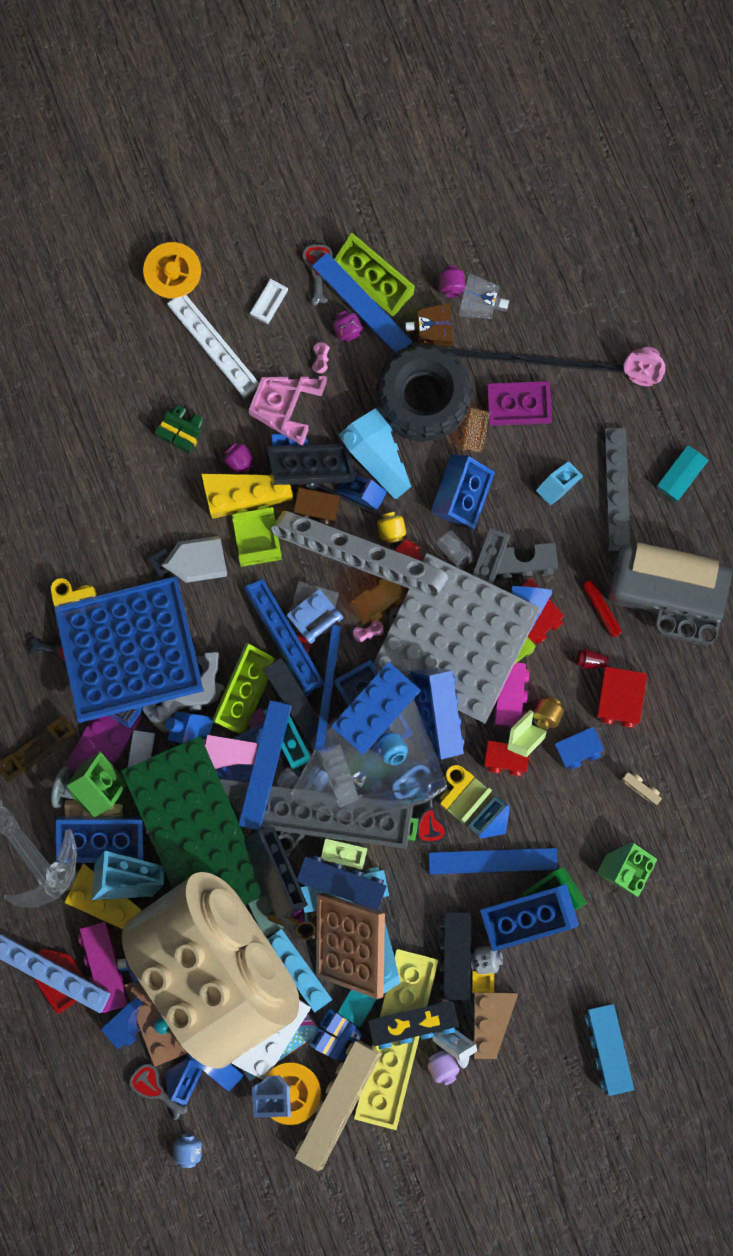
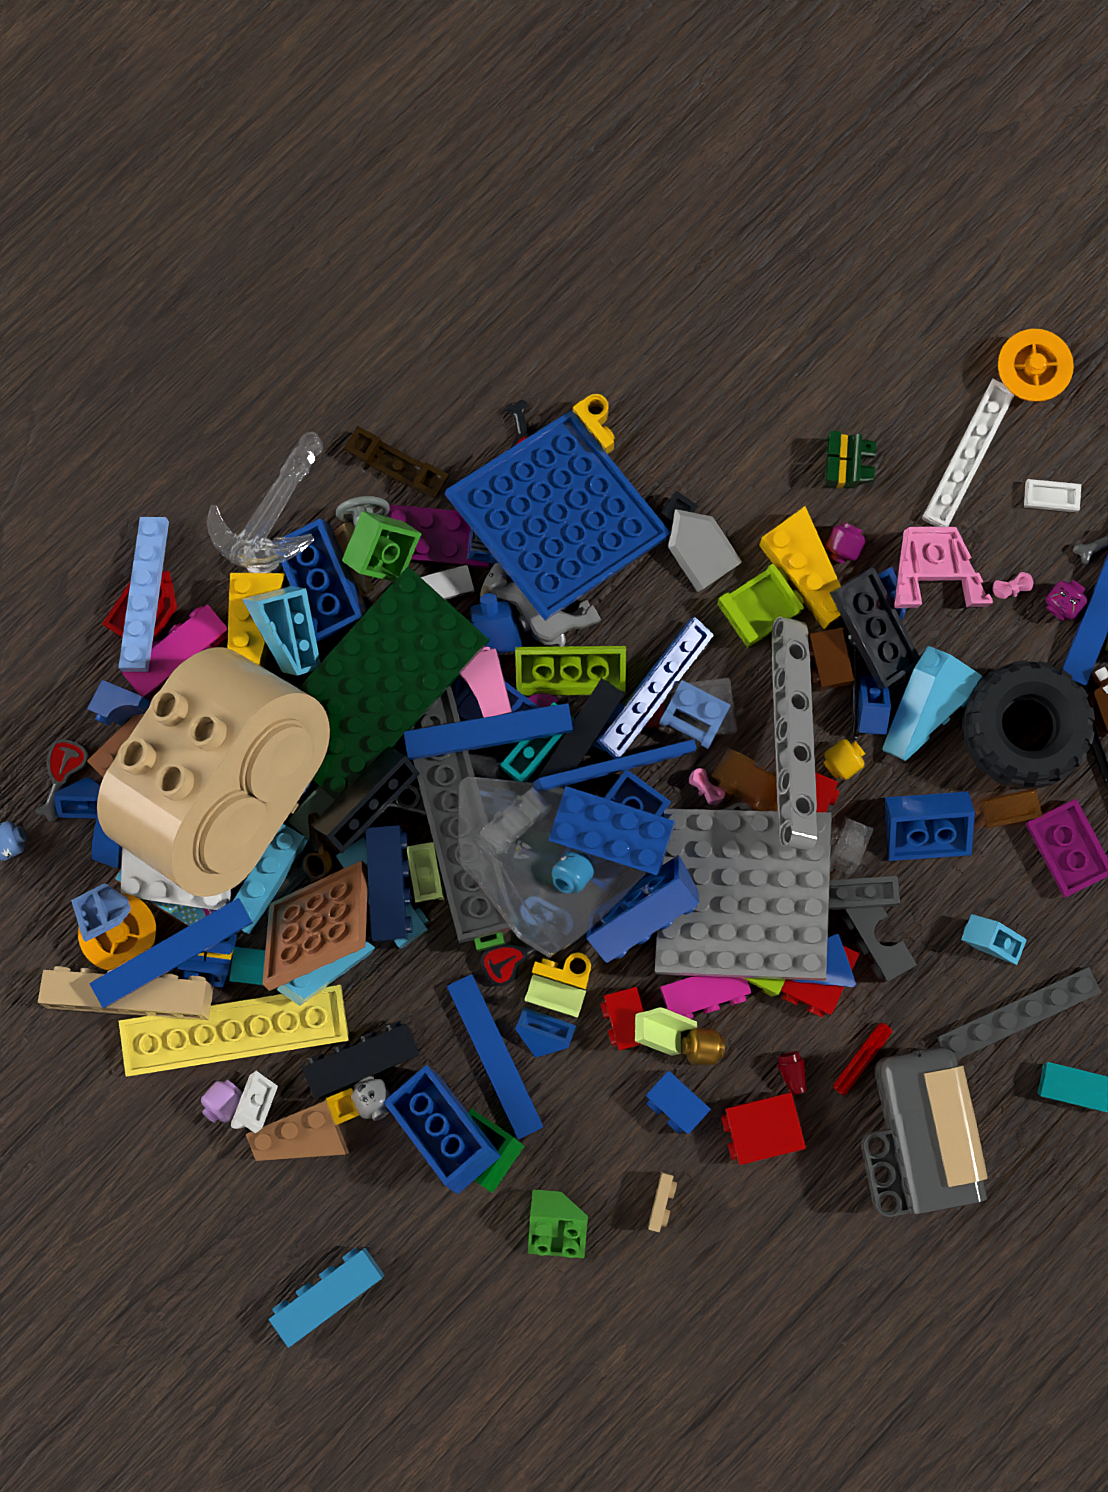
camera: 70 degrees right, 0 degrees up
(324, 1058) = (171, 953): none -> blue tile
(413, 1023) = (257, 1042): black brick -> none

